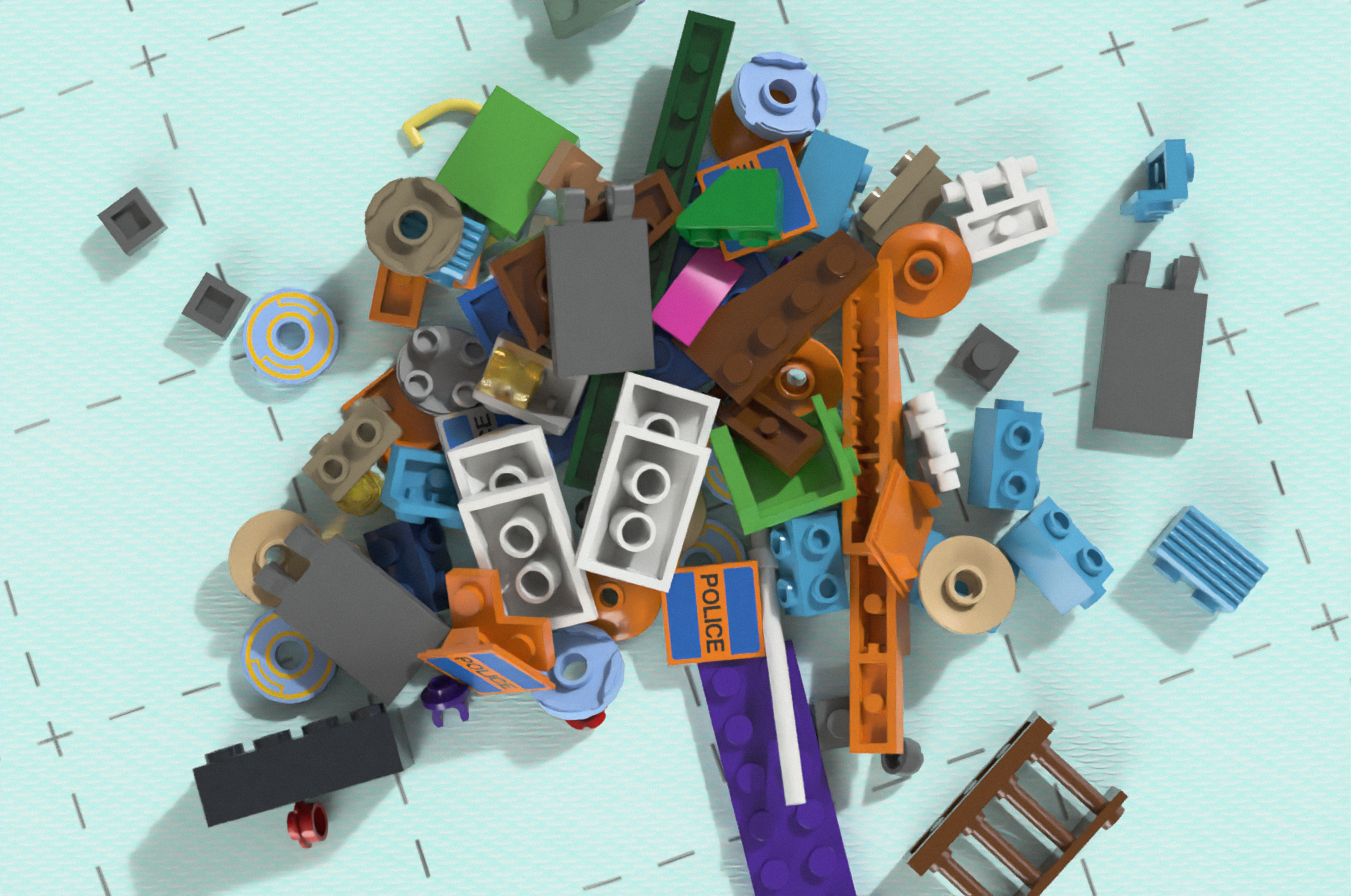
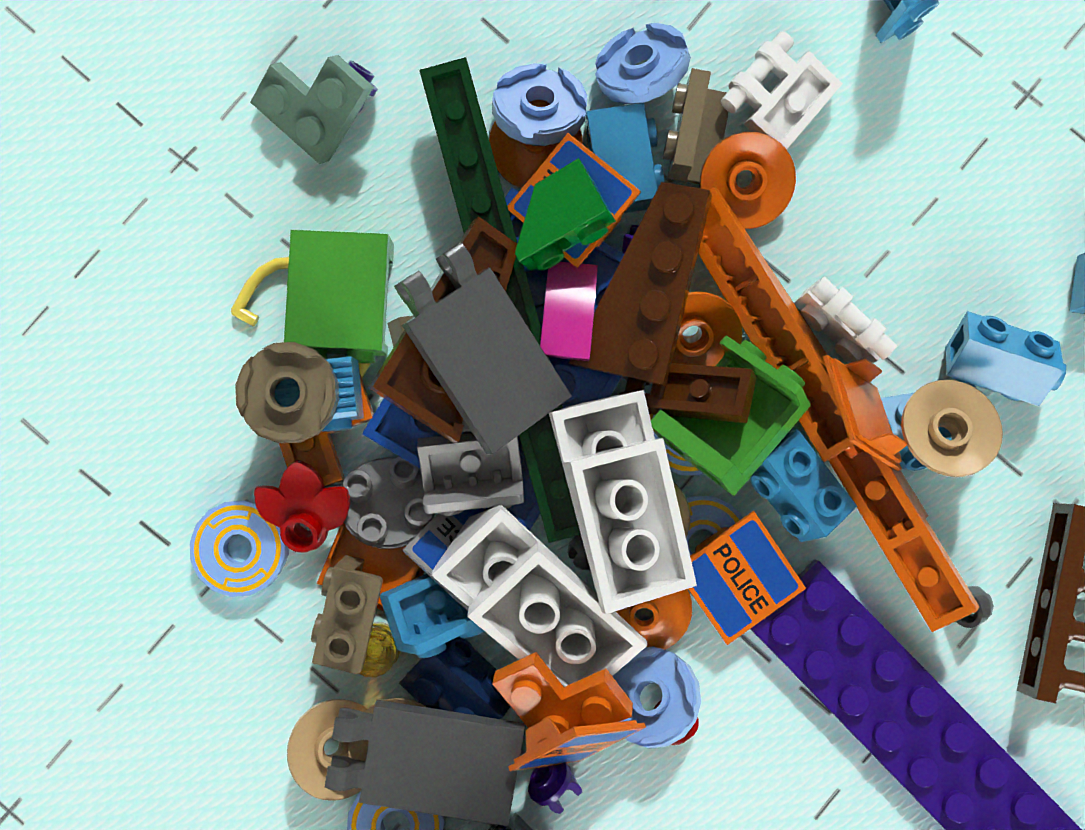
camera: 30 degrees left, 0 degrees up
(132, 221) = (43, 528): dark grey plate -> none
(216, 305) = (158, 559): dark grey plate -> none
(372, 326) = (304, 501): none -> red plate
(508, 376) = (448, 477): clear yellow wheel -> none
(573, 168) = (396, 262): medium nougat plate -> none
(778, 668) = (830, 599): white bar -> none
(832, 722) = (895, 609): dark grey plate -> none
(895, 132) = (633, 83): none -> light blue tile
(984, 357) = (839, 226): dark grey plate -> none
(1005, 456) = (911, 299): dark azure brick -> none
(1151, 351) = (974, 139): dark grey tile -> none

